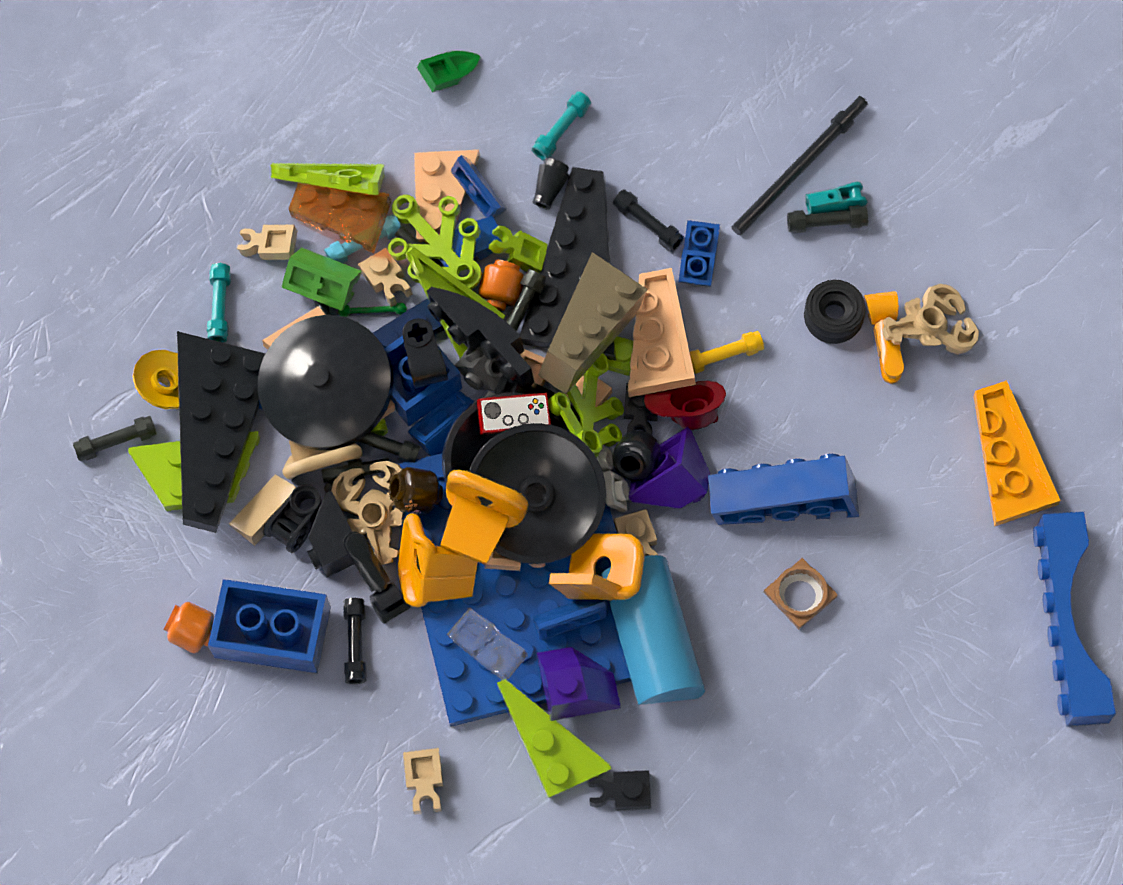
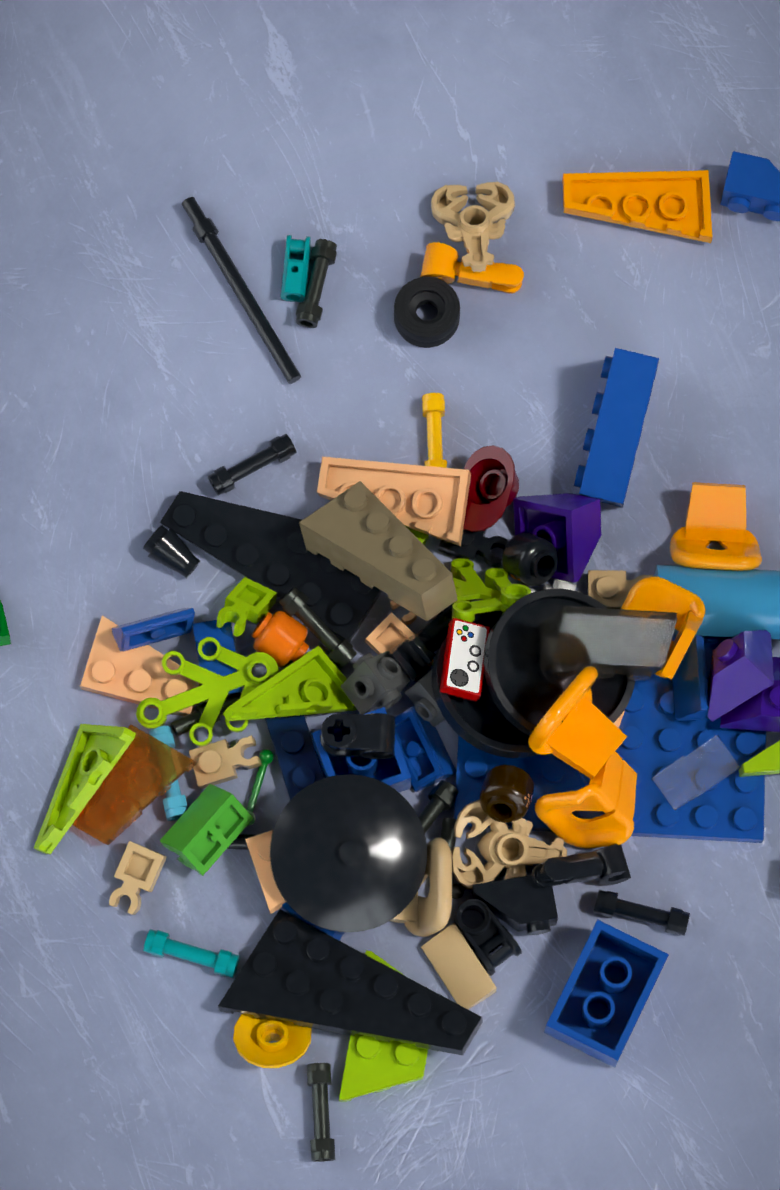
camera: 75 degrees left, 5 degrees up
(189, 627) = (577, 1081): orange head -> none
(479, 326) = (341, 670): black slope -> none
(559, 516) = (606, 639): none -> clear smoke slope
(576, 106) = (120, 542): teal bar -> none
(584, 644) = (739, 671): none -> dark purple slope
(699, 253) = (310, 426): blue slope -> none
(733, 598) = (717, 515): none -> light orange piece
(800, 572) = (735, 430): medium nougat piece -> none

